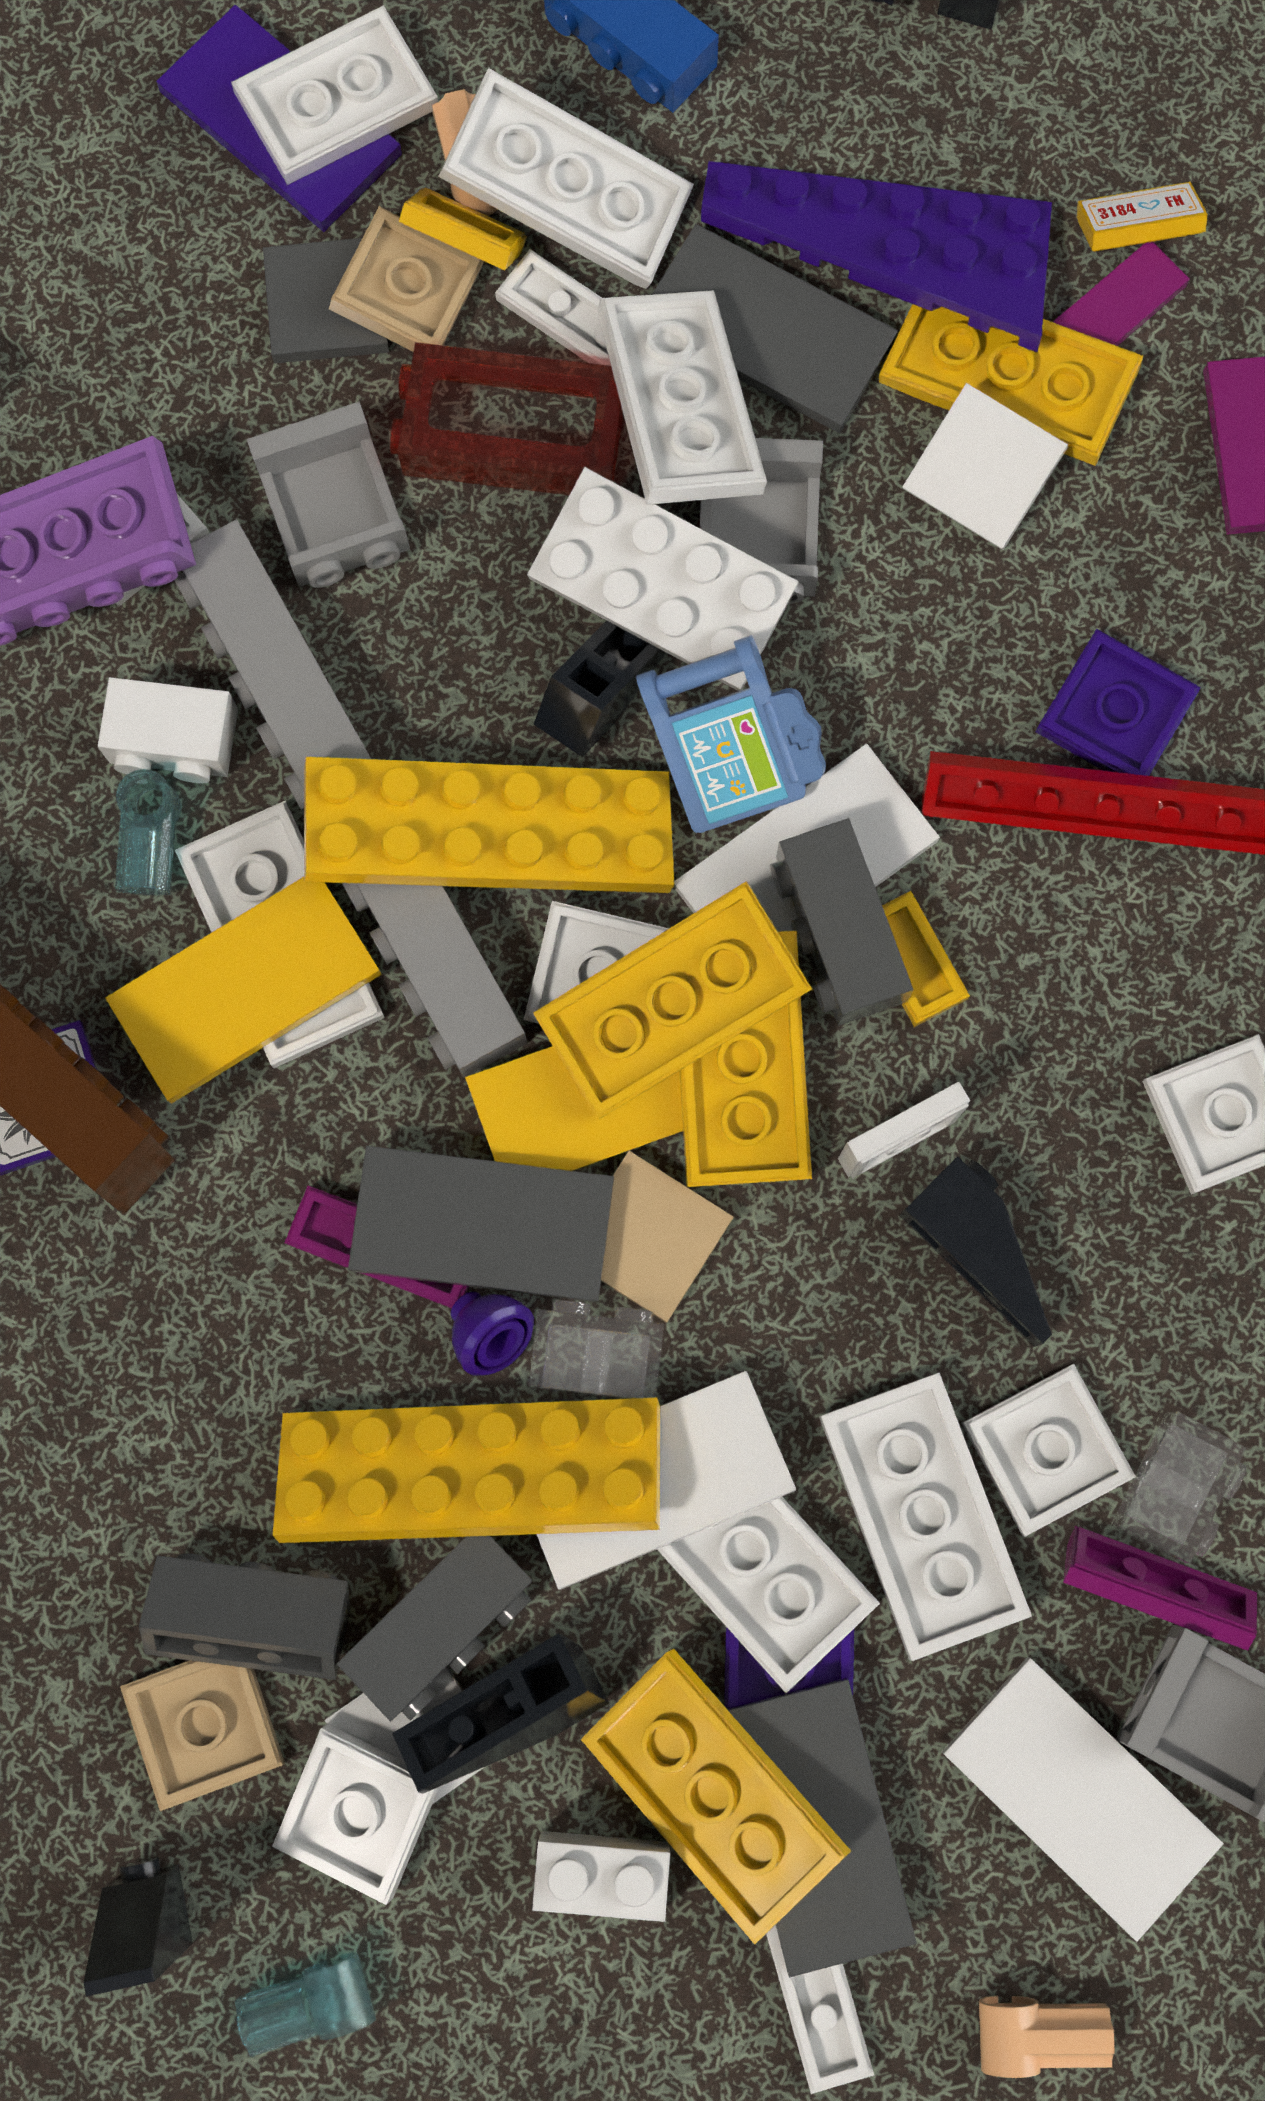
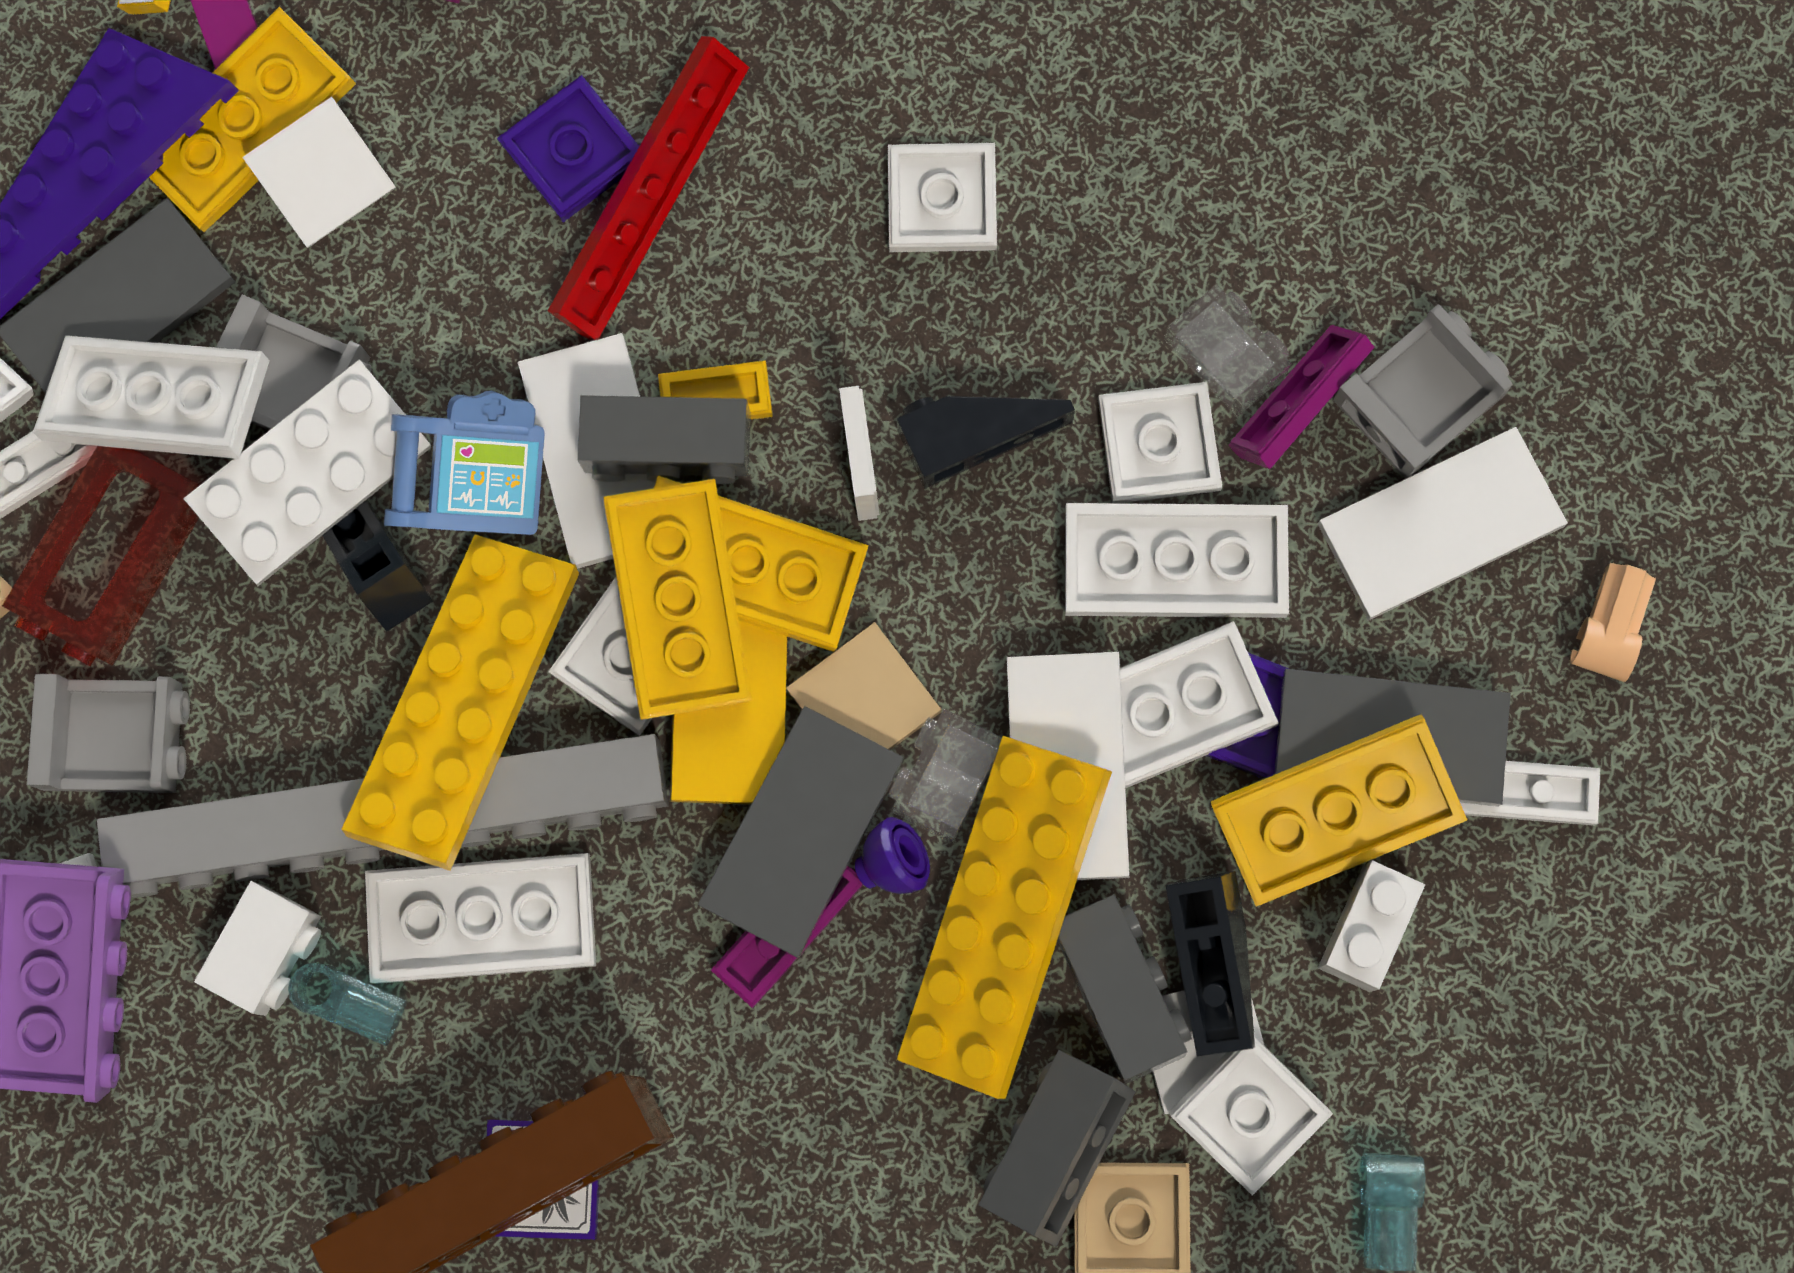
camera: 65 degrees left, 0 degrees up
(242, 987) = (516, 963): yellow tile -> none

